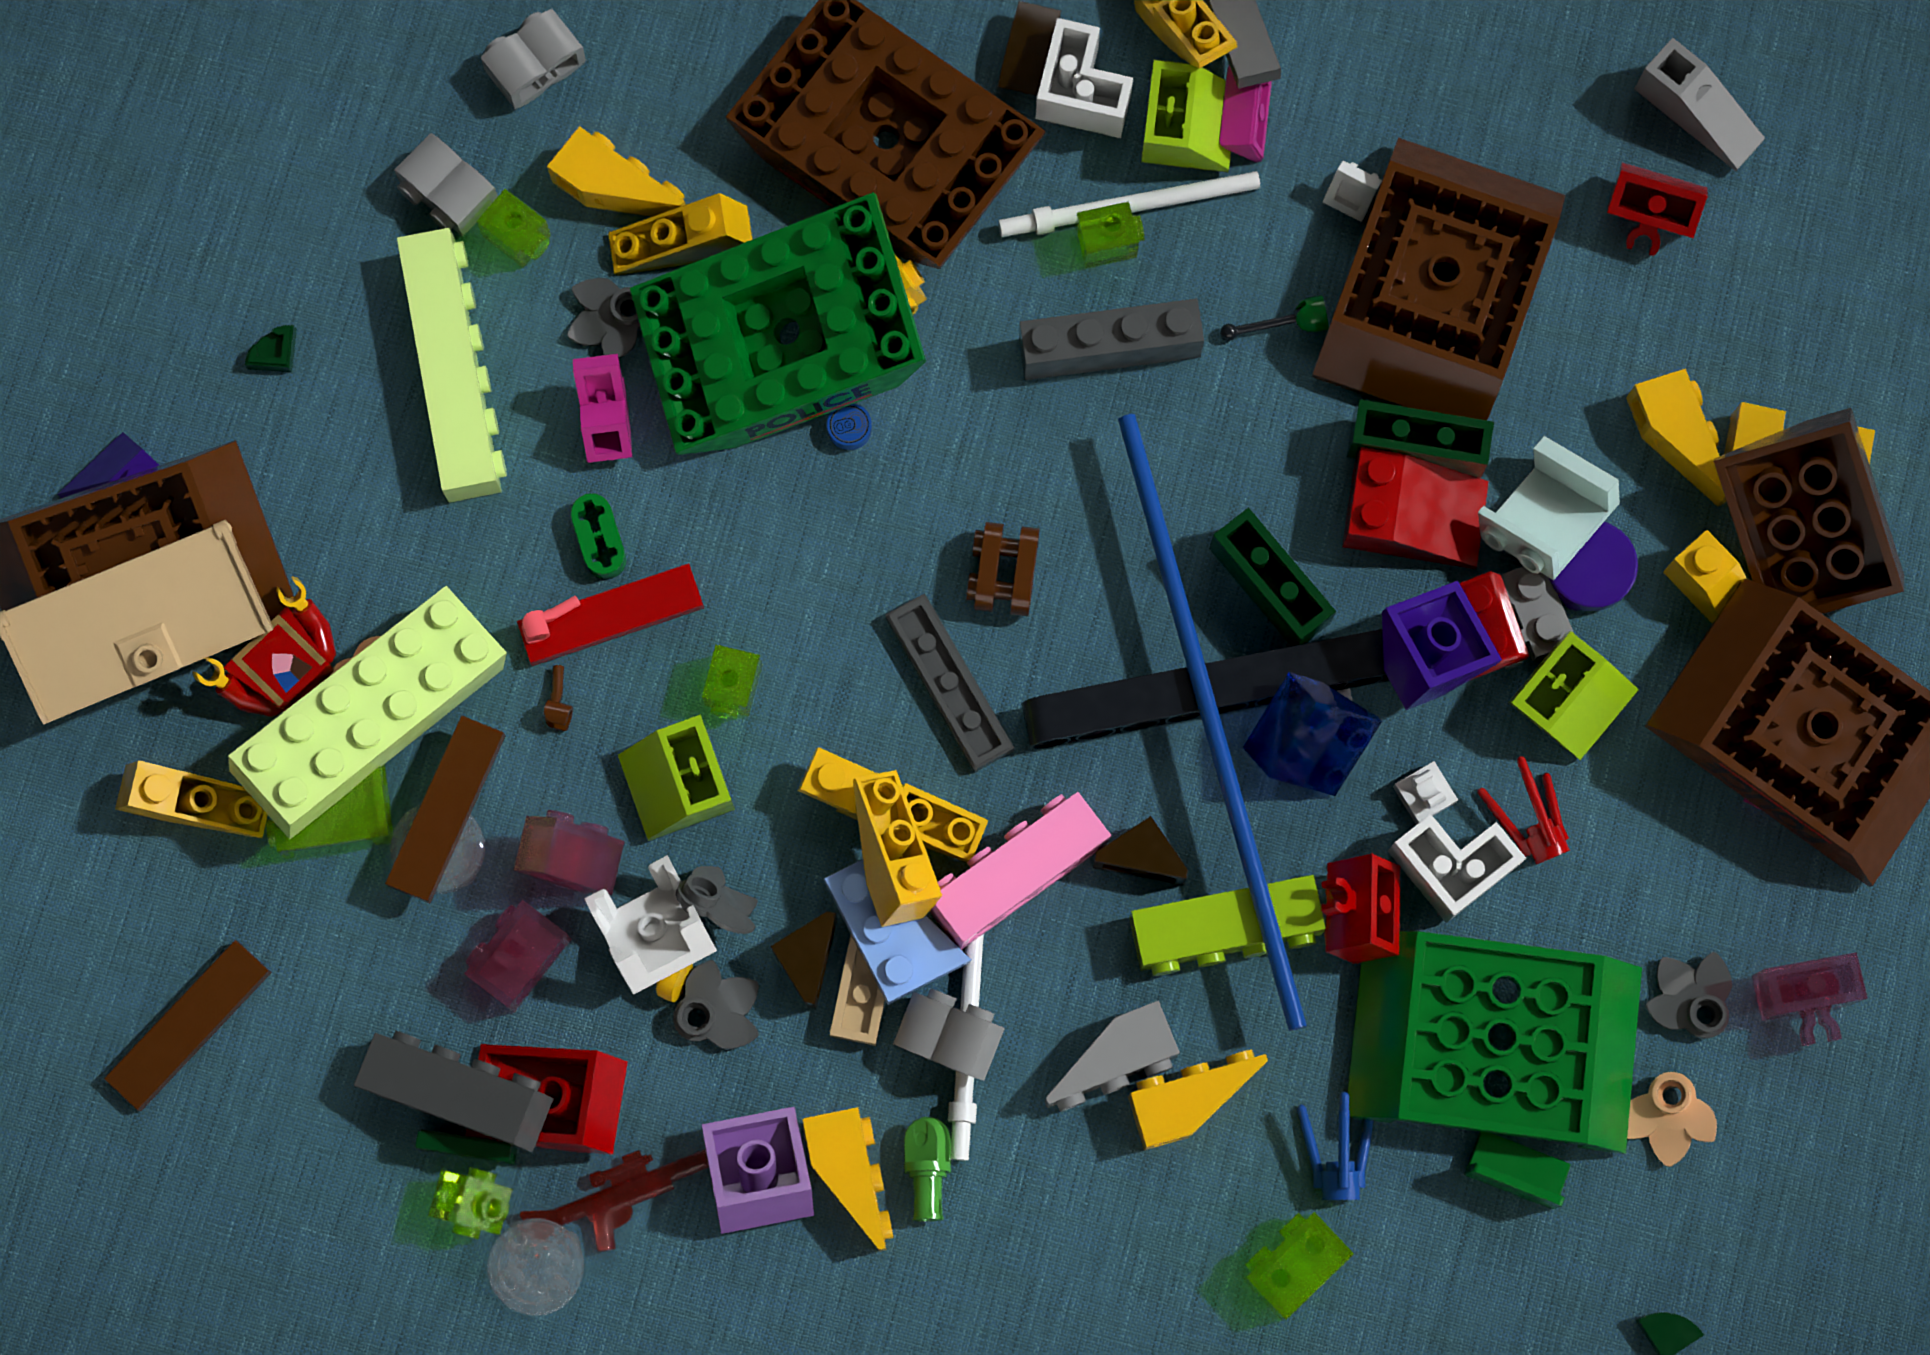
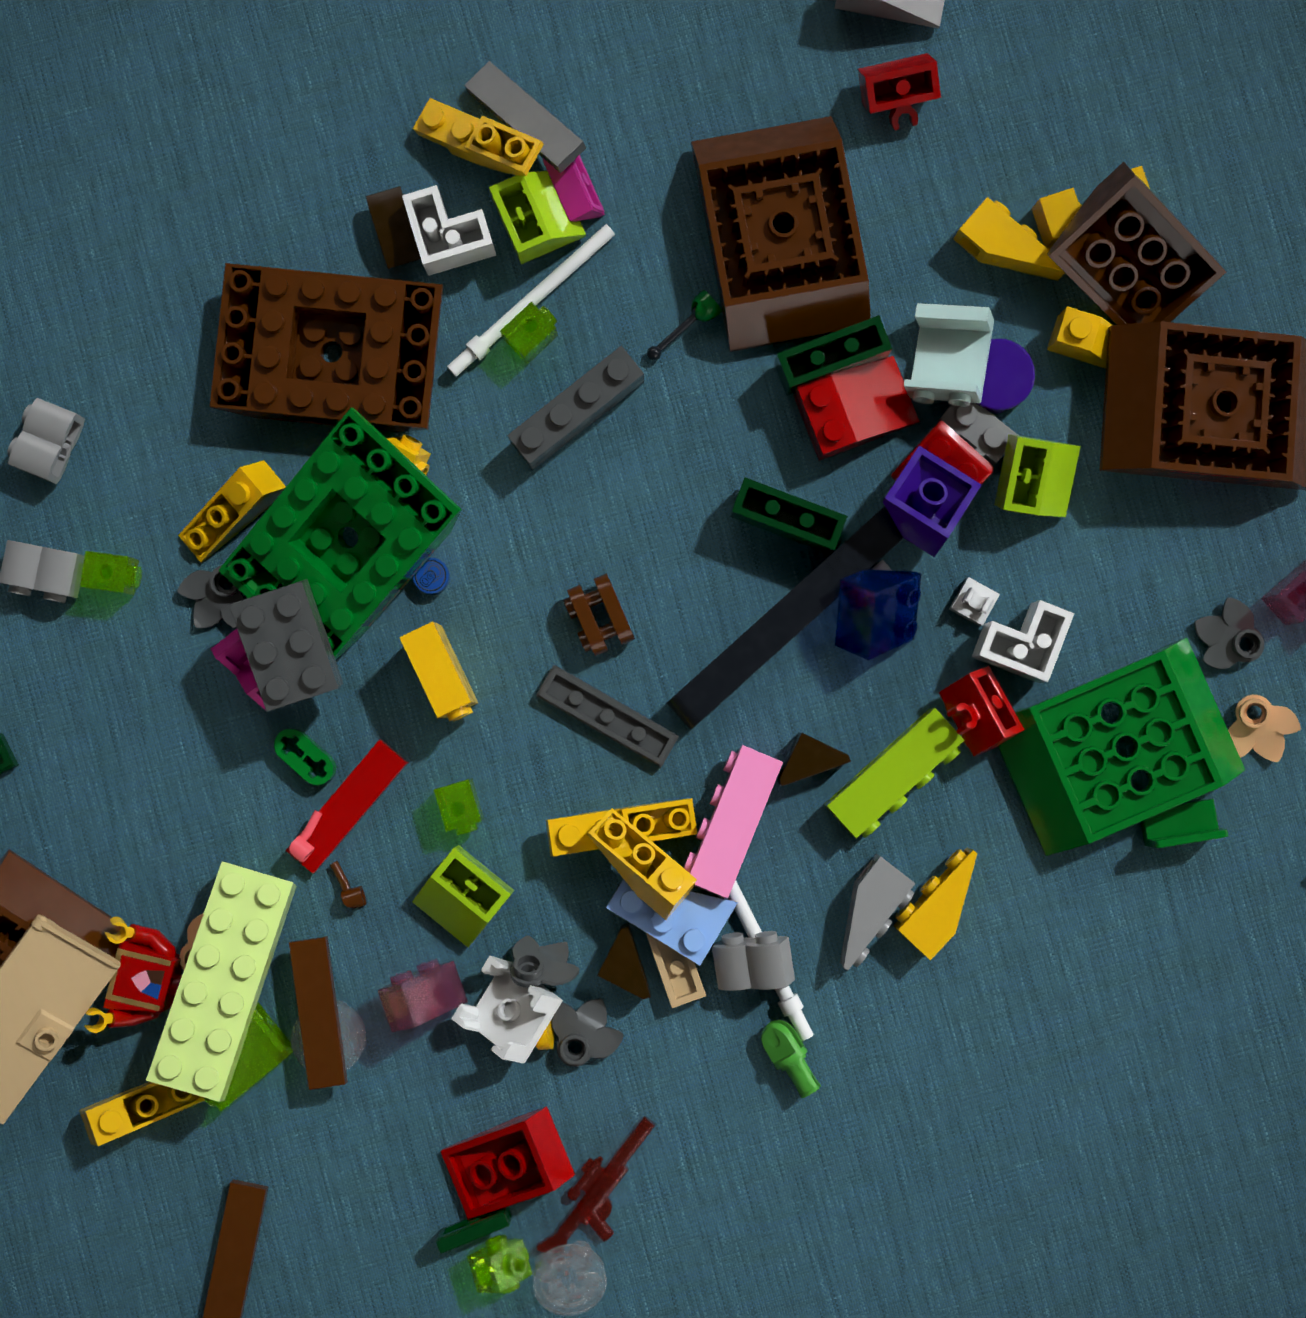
camera: 30 degrees left, 10 degrees up
(450, 365) = (126, 697): yellowish green brick -> none
(453, 1091) = (443, 1201): dark grey brick -> none
(516, 954) = (428, 1080): clear pink brick -> none
(606, 180) = (152, 500): yellow slope -> none
(656, 396) = (286, 645): none -> dark grey brick
(758, 1170) = (678, 1128): medium lavender slope -> none
(798, 524) = (439, 671): none -> yellow brick
(841, 1160) = (732, 1089): yellow slope -> none
(1212, 724) = (804, 641): blue piece -> none
(1296, 1265) = (1071, 976): clear neon green brick -> none
(1342, 1178) = (1068, 897): blue plant -> none
(1352, 190) = (681, 199): white tile -> none
(1548, 836) = (1073, 585): red plant -> none

